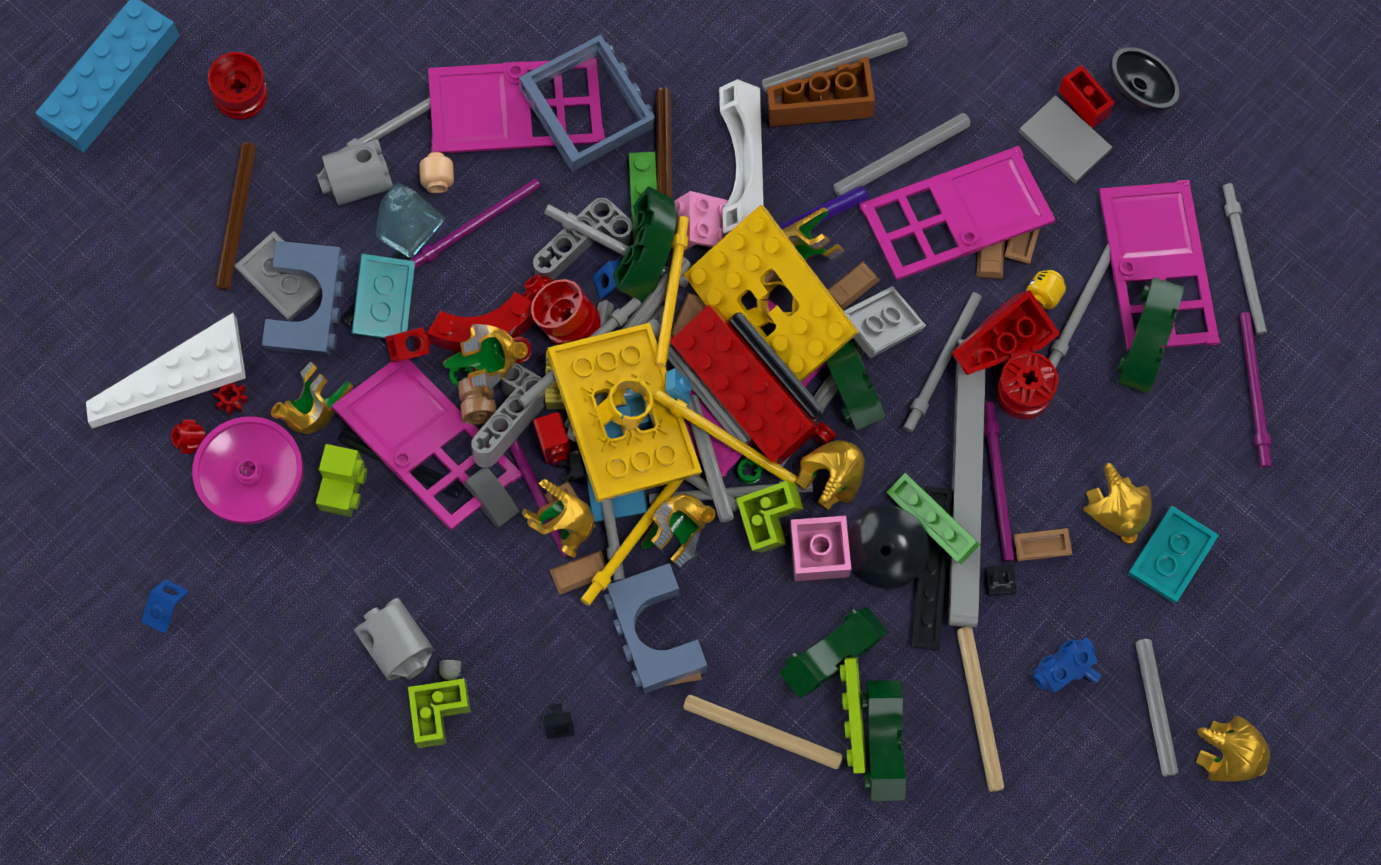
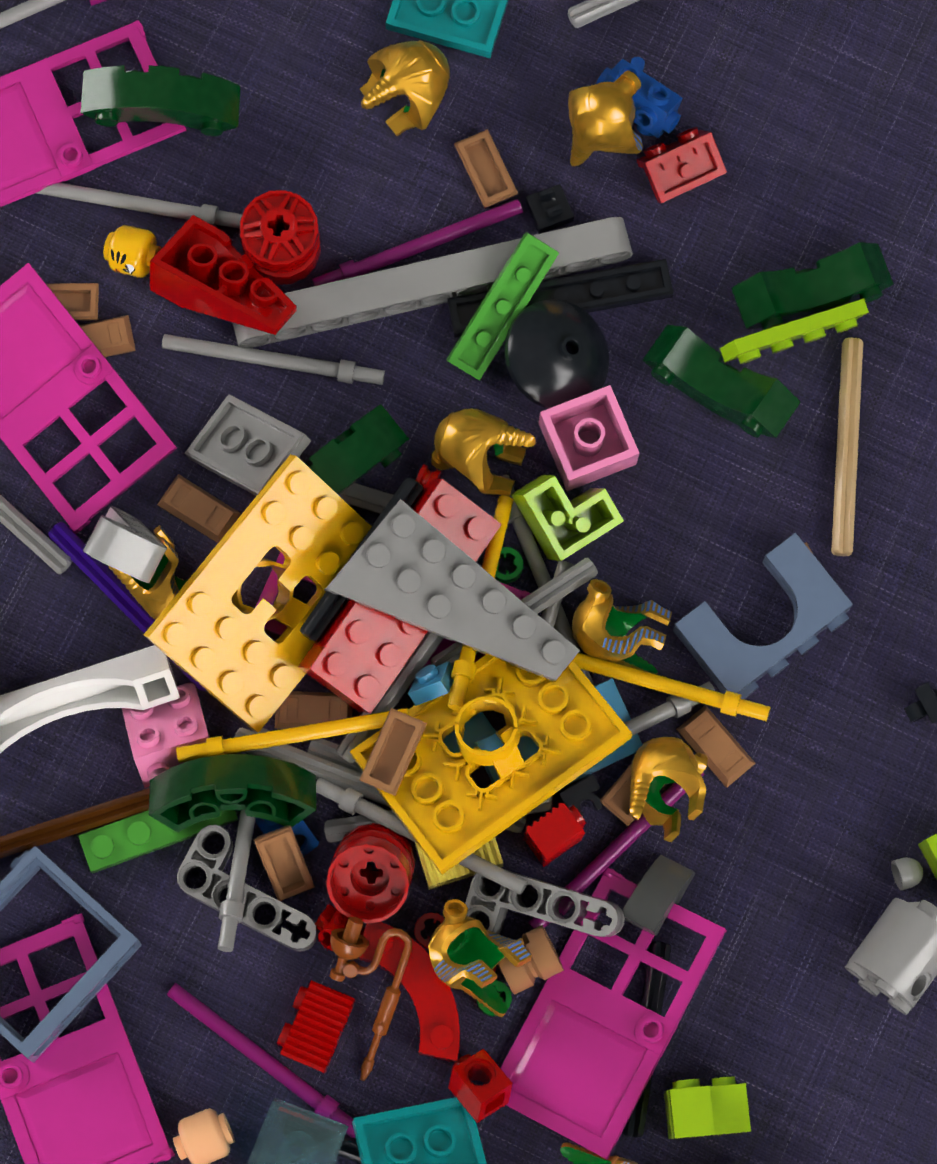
camera: 110 degrees left, 5 degrees up
(482, 260) = (316, 1026): none -> red brick
(523, 286) = (350, 945): none -> dark orange piece
(593, 266) = (284, 862): none -> medium nougat tile
(637, 343) = (393, 751): none -> medium nougat tile
(740, 396) = (435, 586): none -> light grey wing
(824, 215) = (125, 545): none -> light grey beam
(980, 709) = (725, 189): tan axle -> none
(1007, 681) = (682, 164): none -> bracket
(1052, 627) = (604, 118): none -> pearl gold piece

